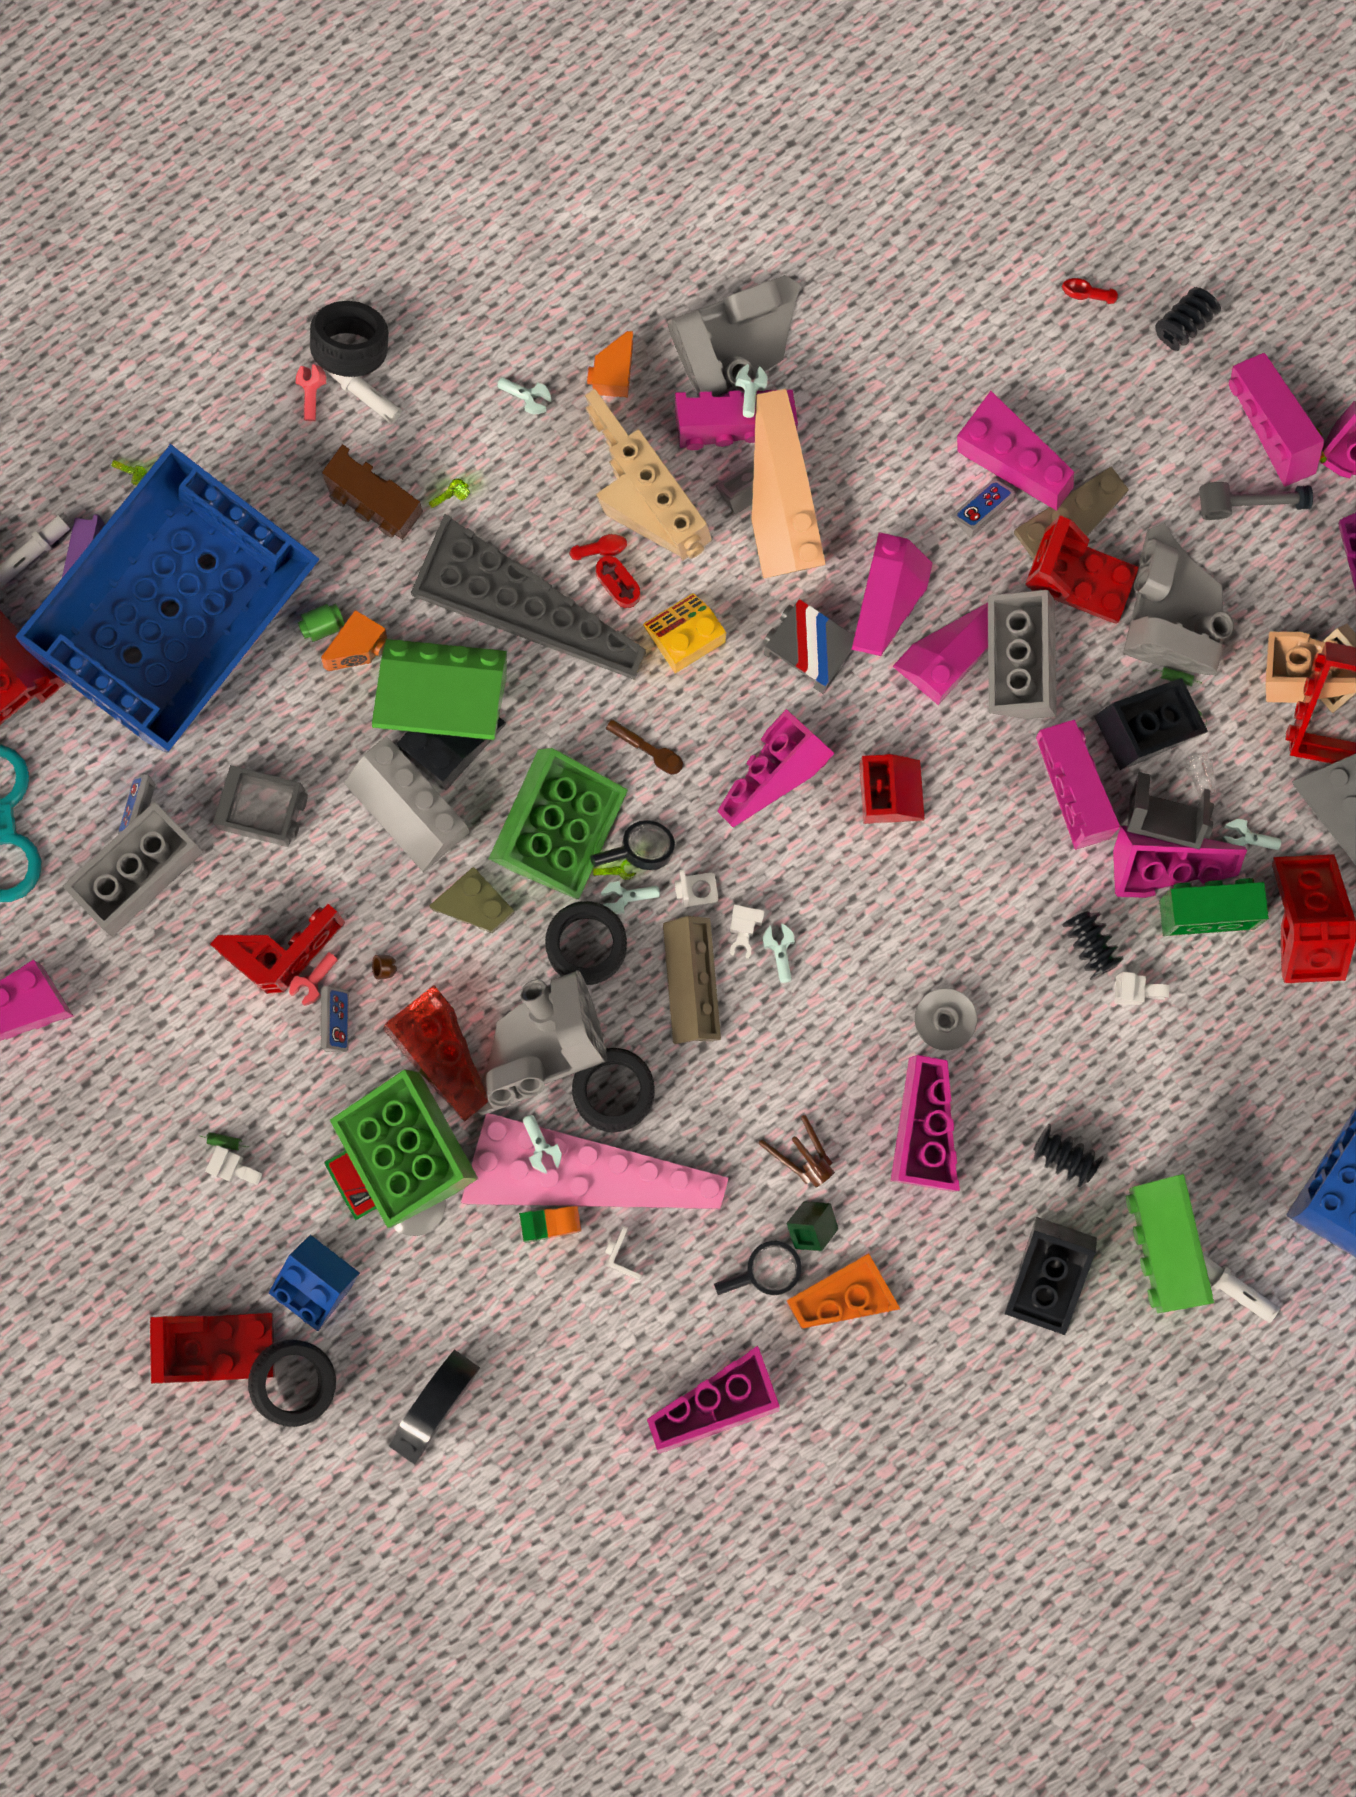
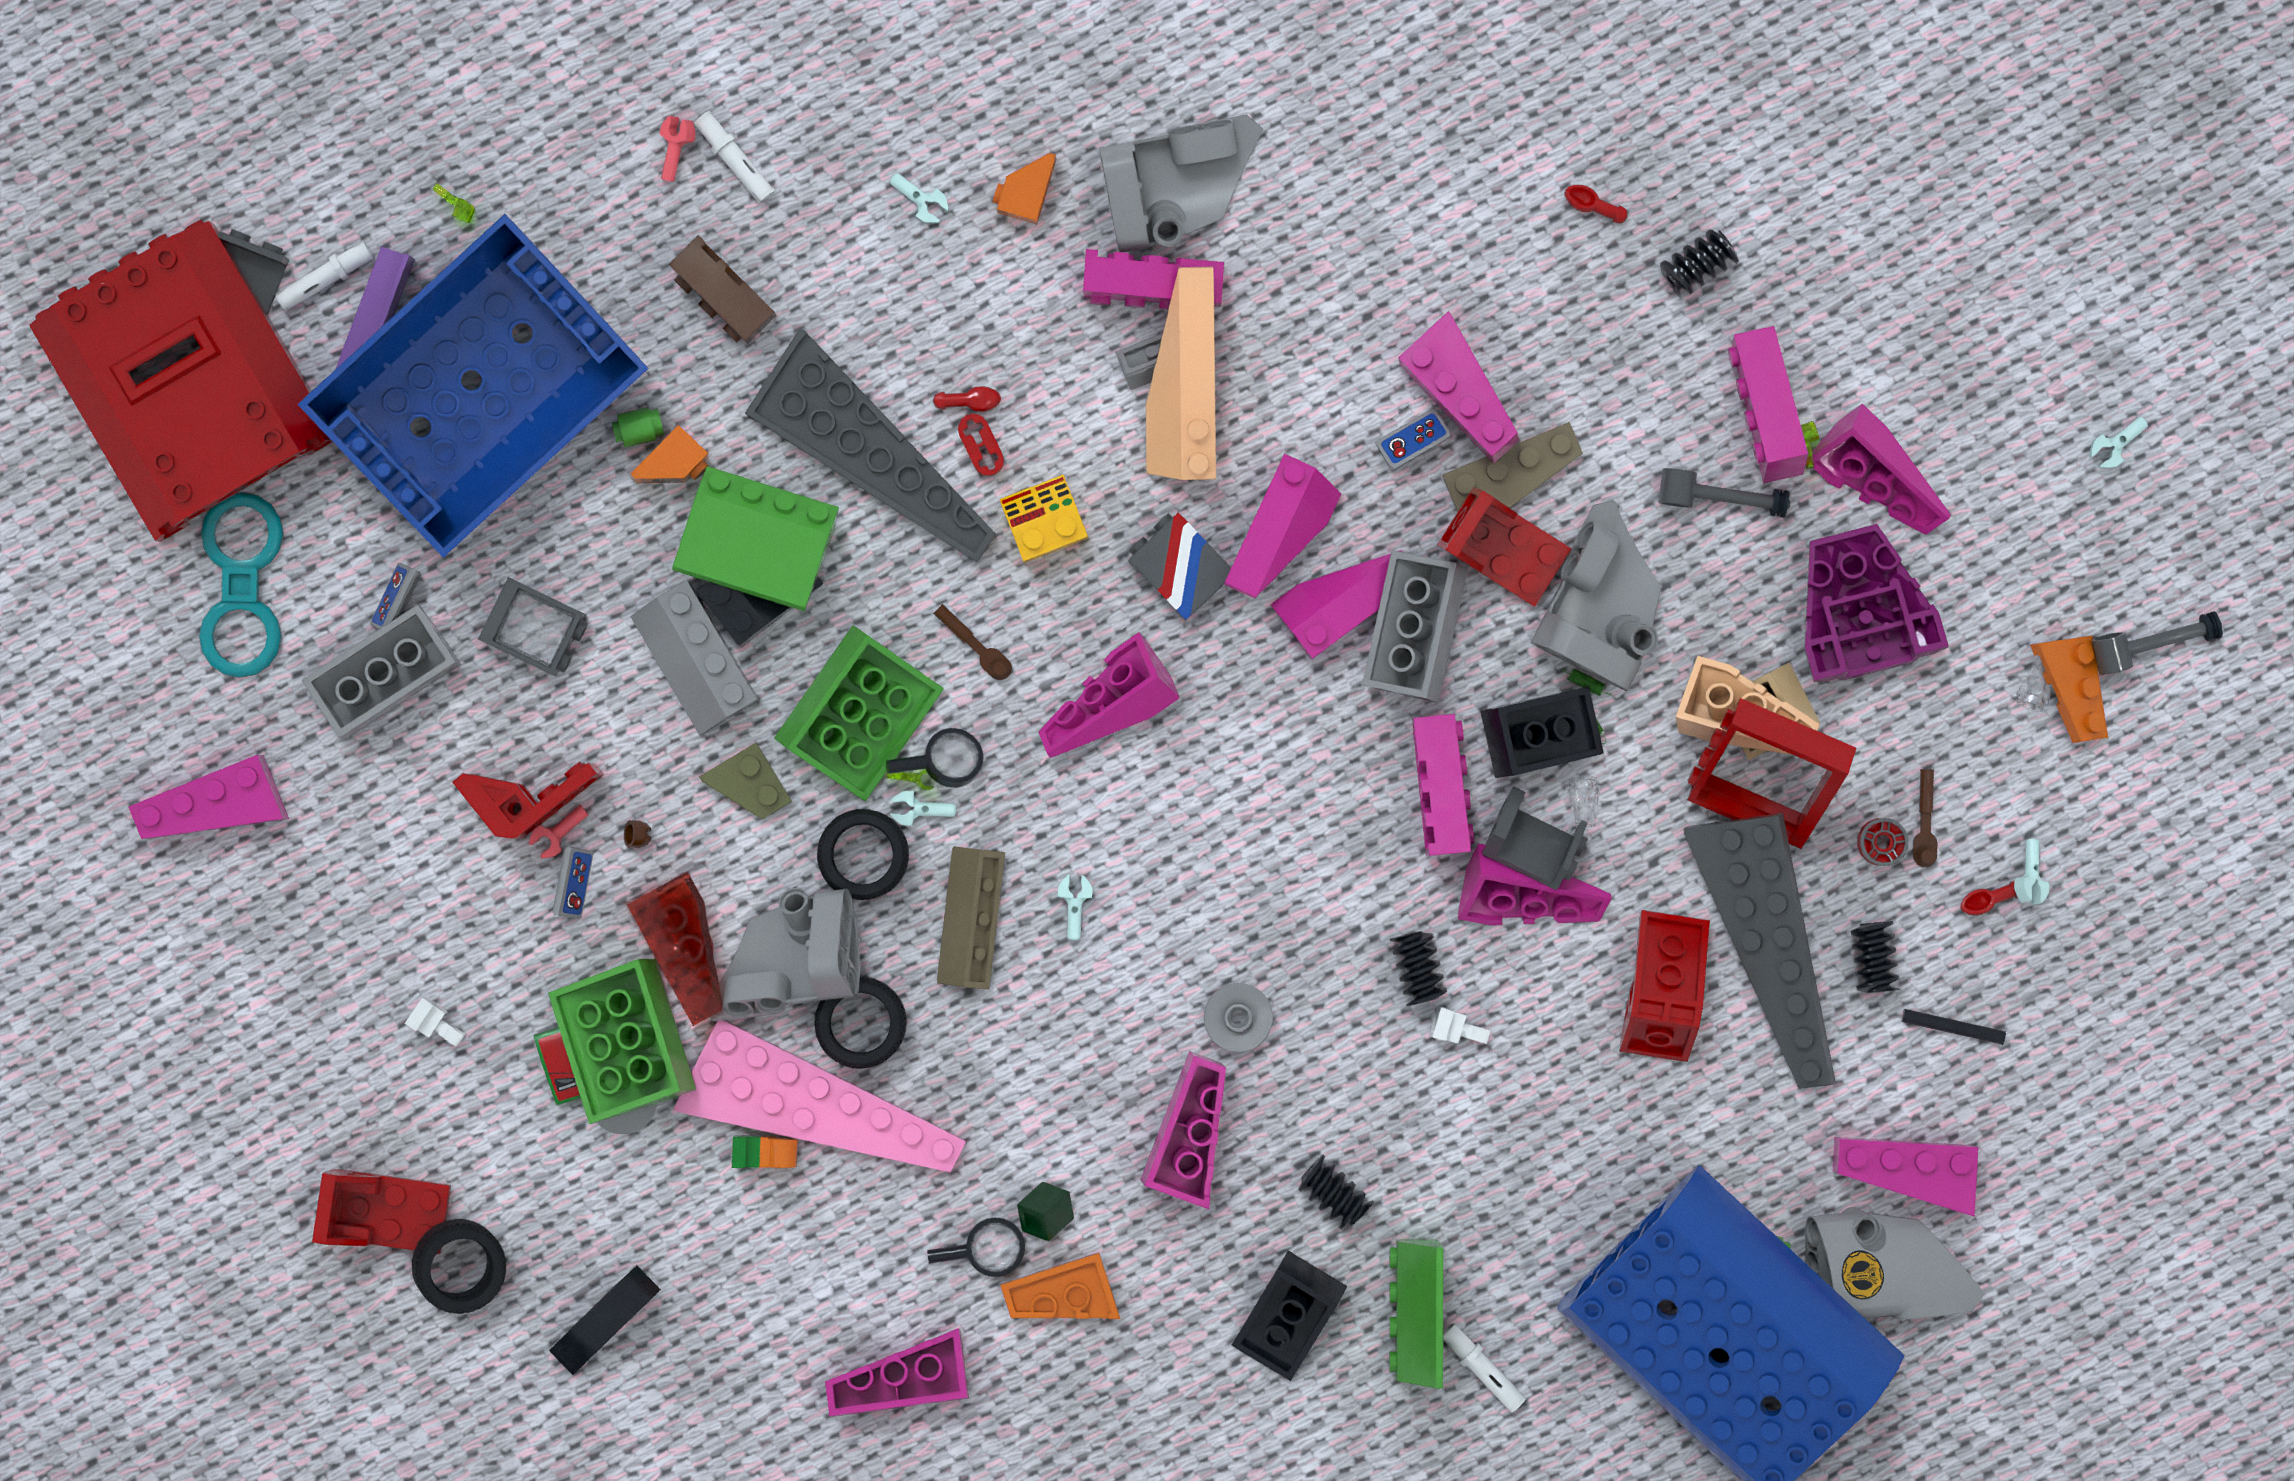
camera: 10 degrees right, 10 degrees up
(223, 1141) = (429, 990): bright green piece -> none
(313, 1282) = (500, 1163): blue slope -> none
(350, 318) = (739, 70): black tyre -> none
(457, 488) = (819, 297): clear neon green hand -> none
(540, 1145) = (769, 1067): light aqua bar -> none
(612, 1249) = (825, 1193): white bracket -> none
(645, 491) = (1017, 358): tan wedge -> none
(684, 889) = (983, 814): white bracket -> none
(743, 924) = (1040, 867): white piece -> none
(750, 388) = (1174, 258): light aqua bar -> none
(816, 1169) = (1062, 1151): reddish brown plant -> none
(891, 789) = (1236, 750): red slope -> none
(1213, 907) = (1557, 956): green brick -> none
(1250, 837) = (1622, 882): light aqua bar -> none

